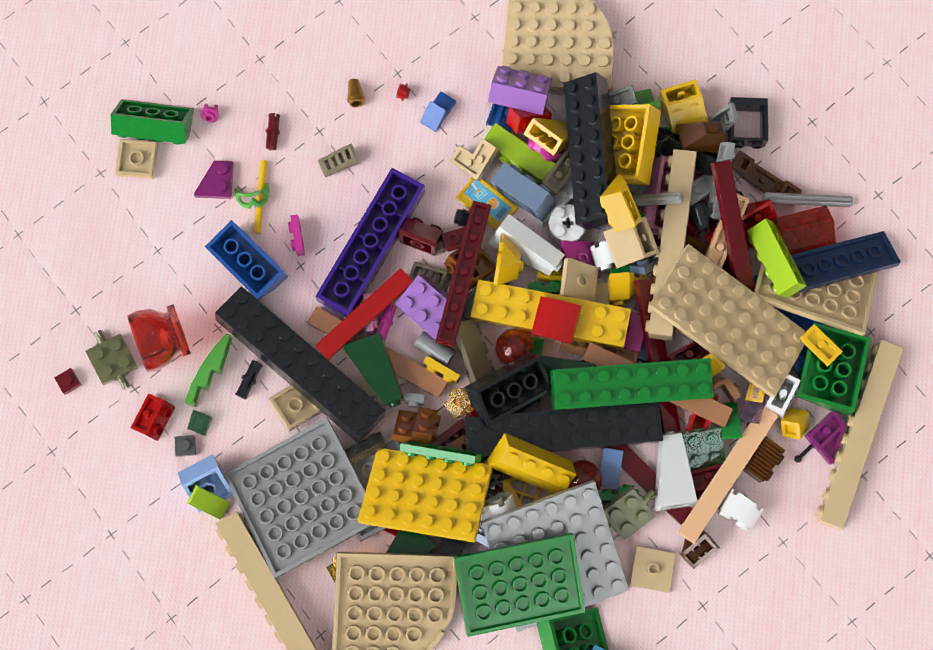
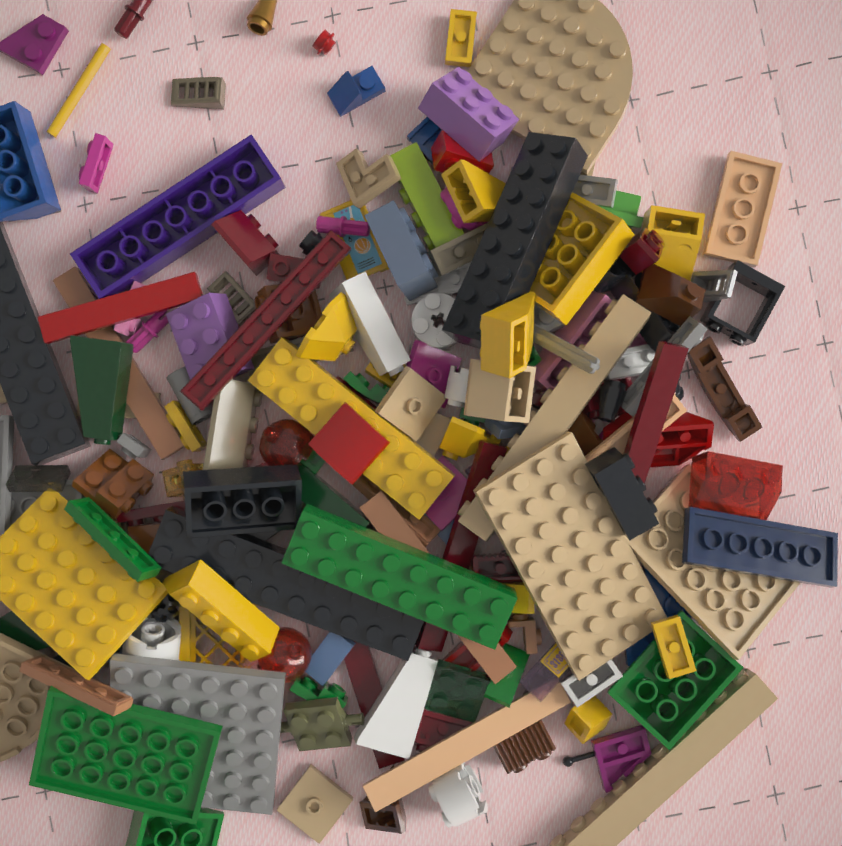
camera: 30 degrees right, 10 degrees up
(266, 190) = (86, 86): bright green helmet -> none
(467, 200) = (342, 226): none -> dark pink axle
(468, 550) = (73, 684): none -> nougat tile
(487, 48) = (460, 38): none -> yellow plate
(670, 118) = (643, 250): none -> dark red slope
(716, 65) = (742, 208): none -> light nougat plate
(739, 265) = (623, 492): none -> black brick
(776, 259) = (678, 505): lime brick -> none
(808, 199) = (763, 444): light grey axle -> none

